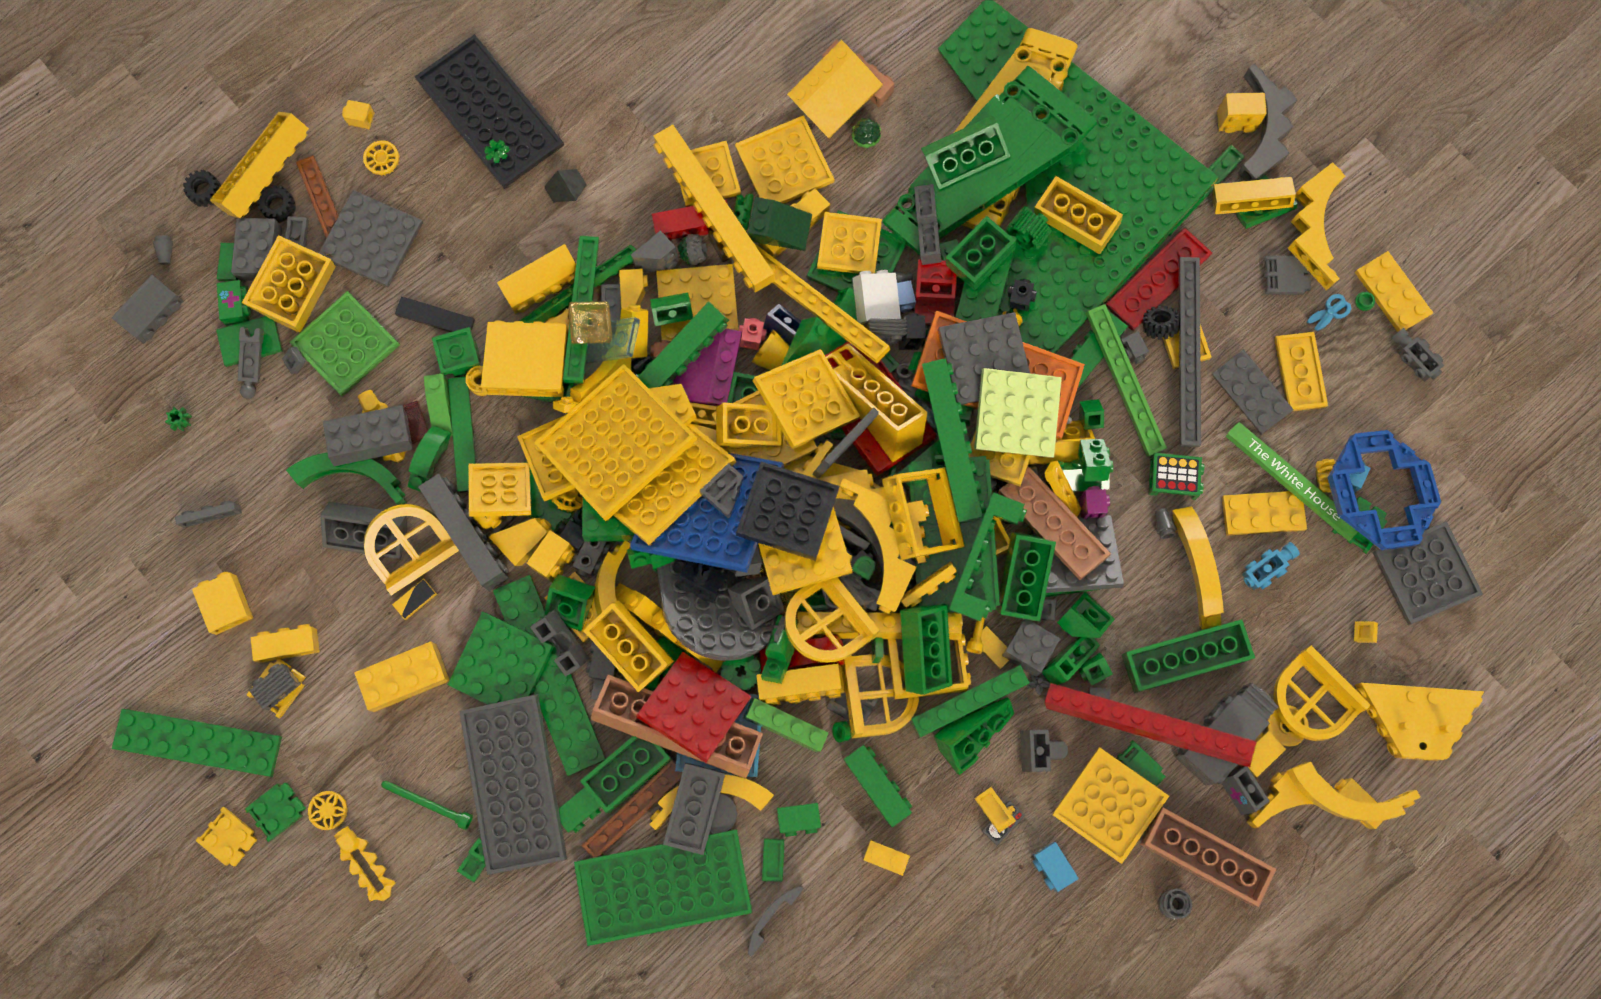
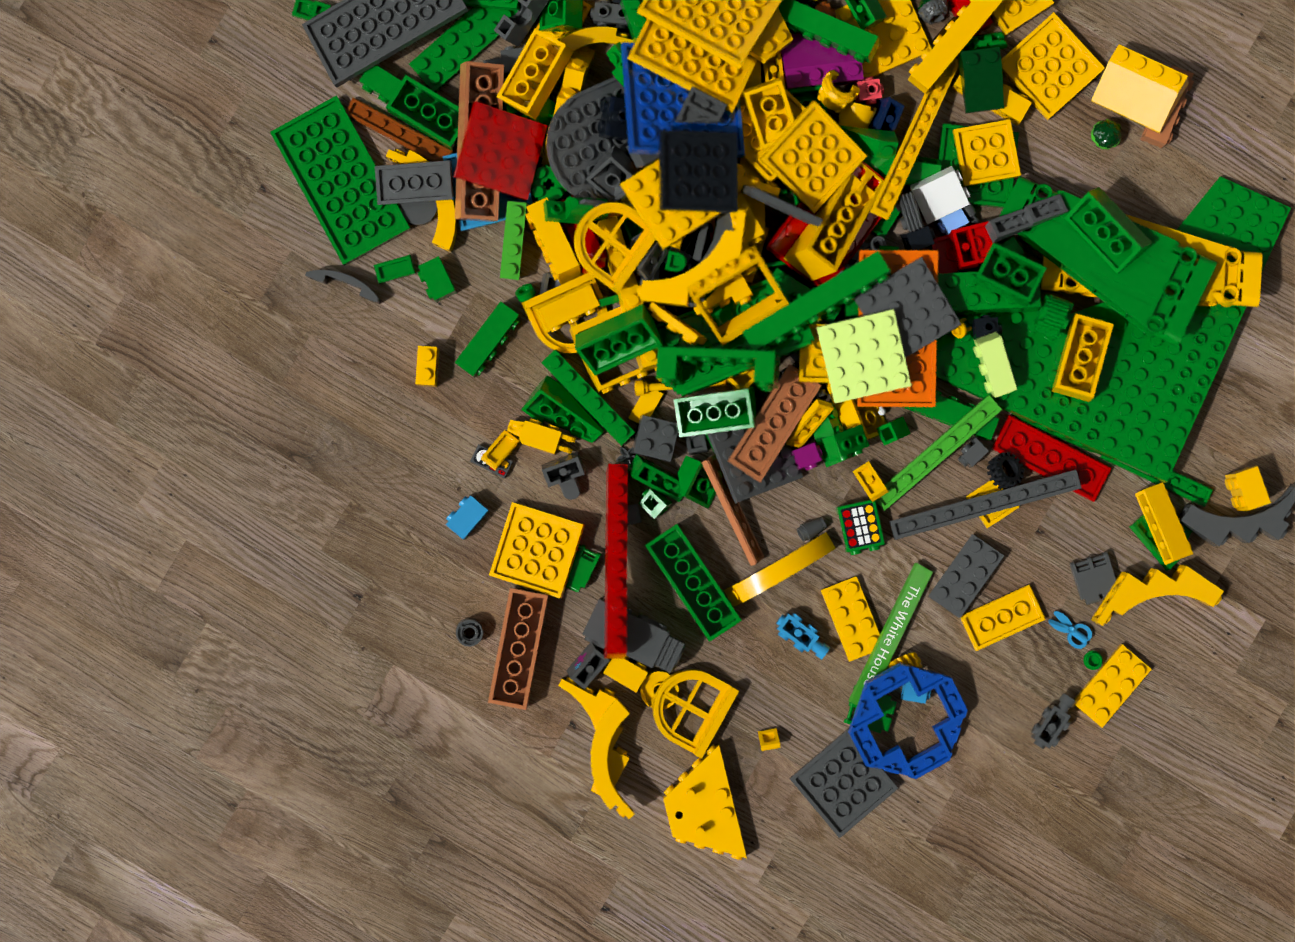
camera: 75 degrees right, 10 degrees up
(751, 364) = (832, 96): none -> yellow helmet
(874, 691) = (568, 308): none -> yellow brick
(993, 765) = (538, 436): none -> yellow hinge
(1061, 295) = (994, 365): none -> yellowish green brick
(1127, 593) = (733, 511): none -> nougat tile
(1135, 451) = (870, 481): none -> yellow plate

